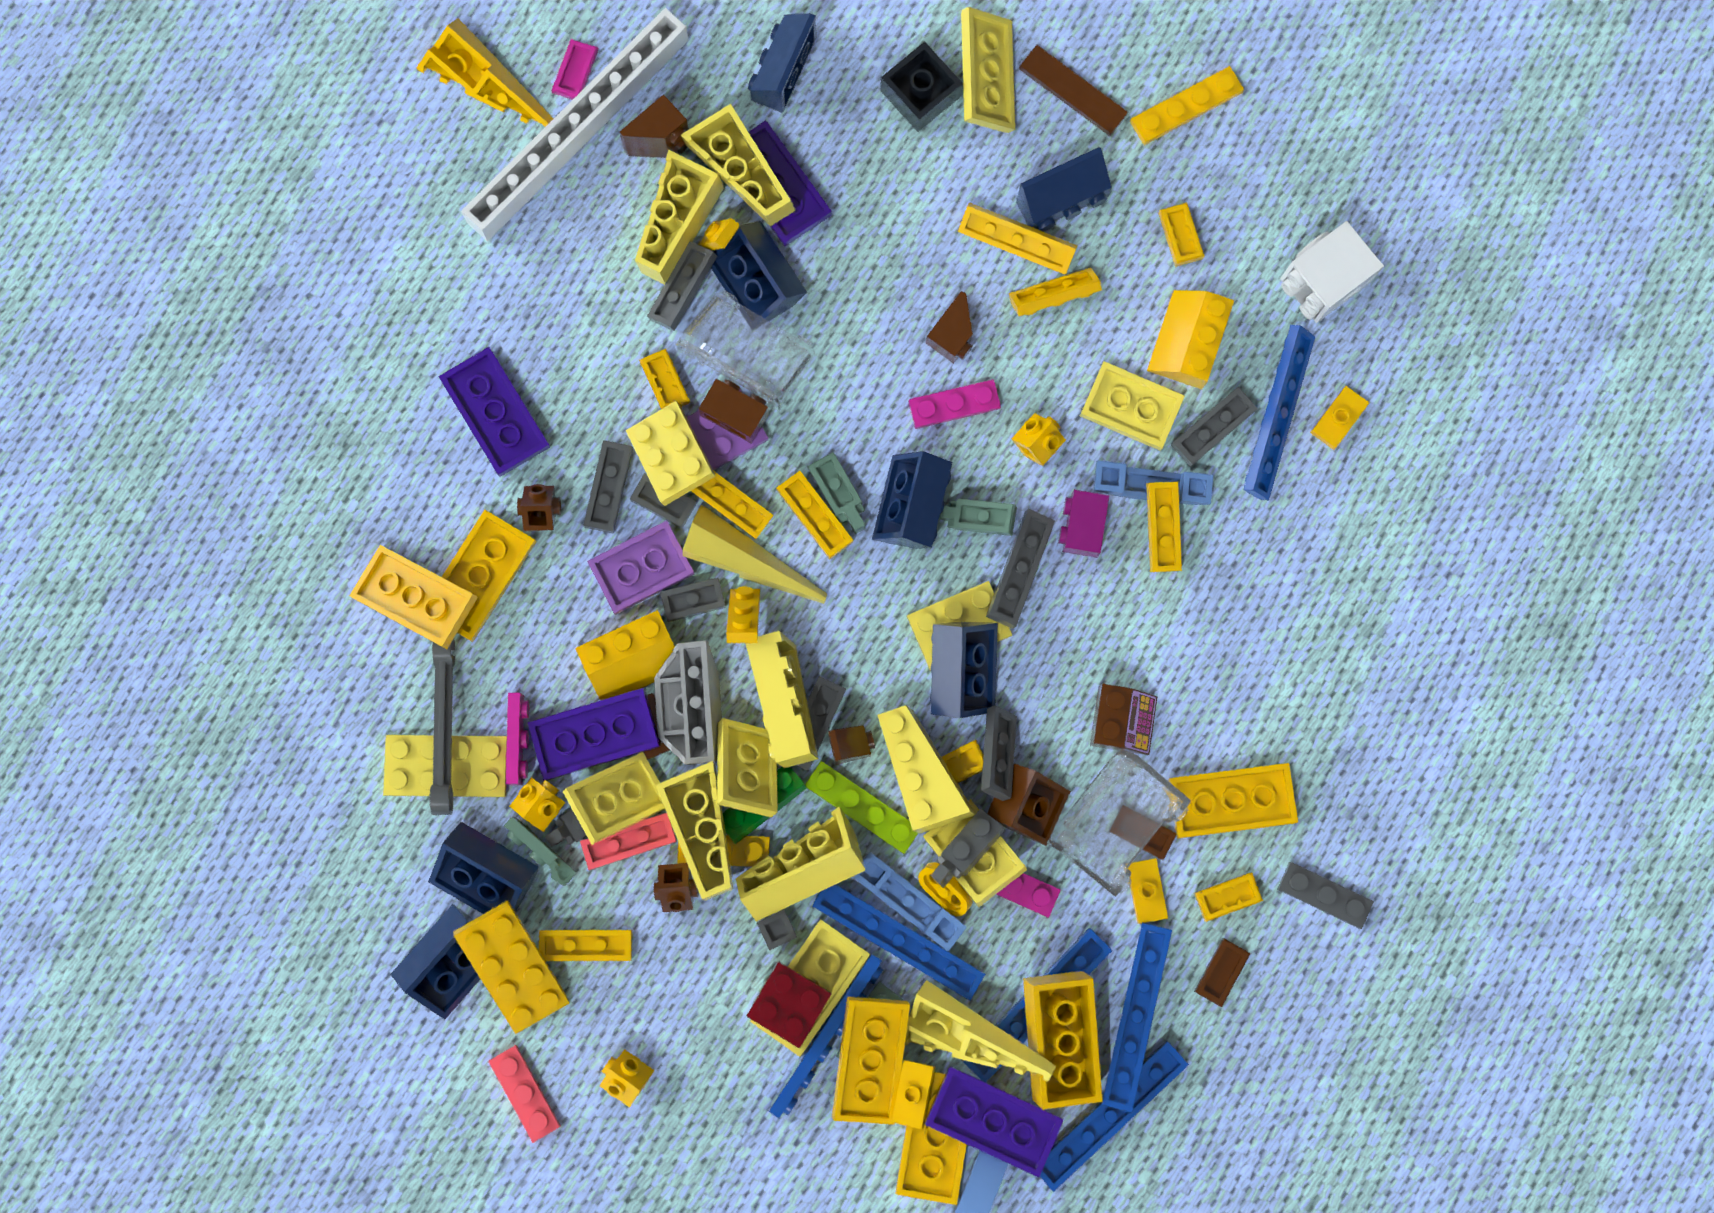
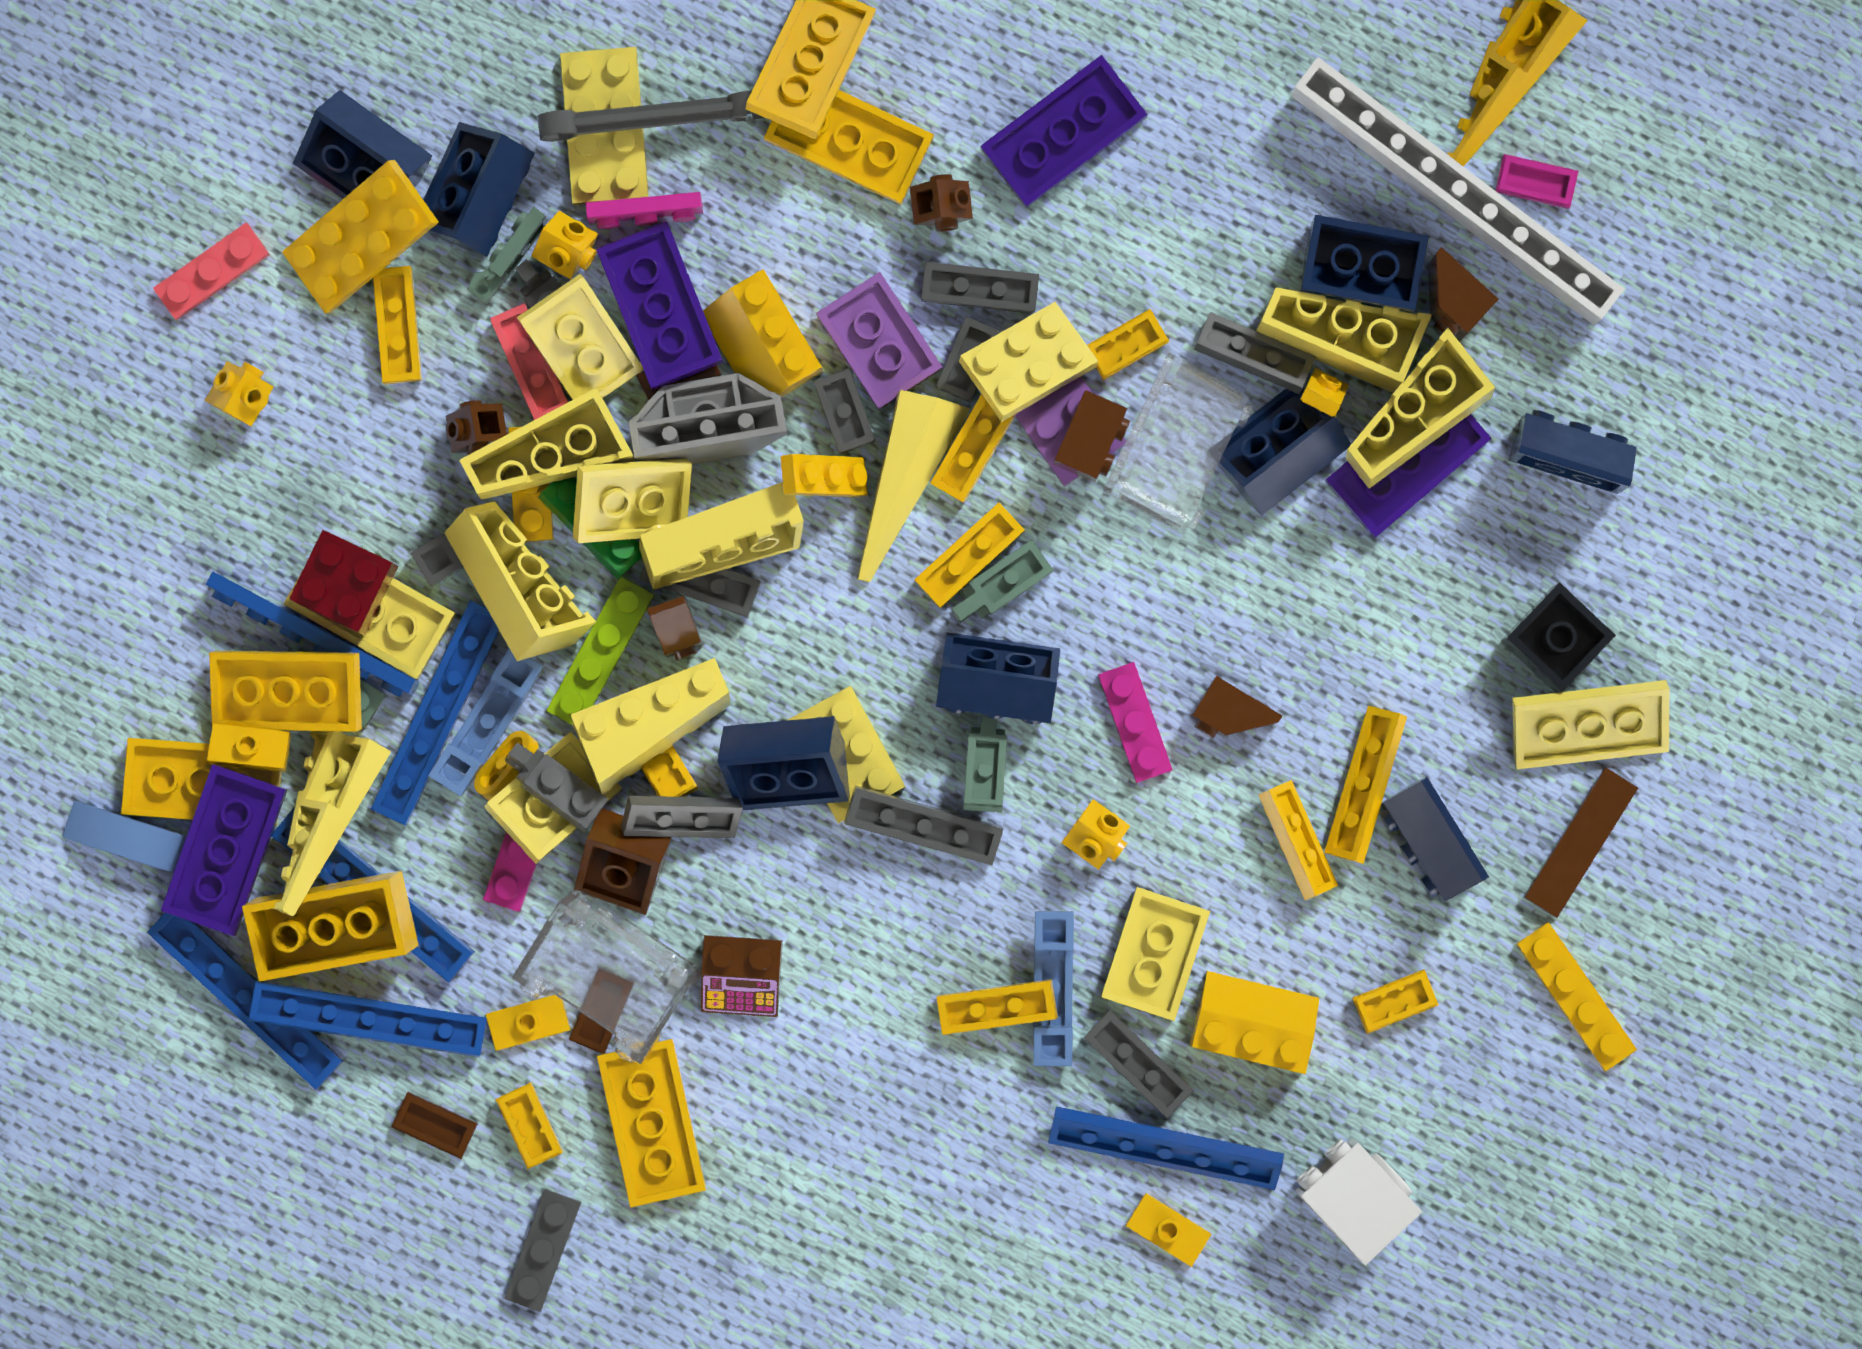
camera: 90 degrees right, 5 degrees up
(622, 196) = (1364, 263): none -> dark blue slope
(1084, 523) = (991, 903): magenta brick -> none

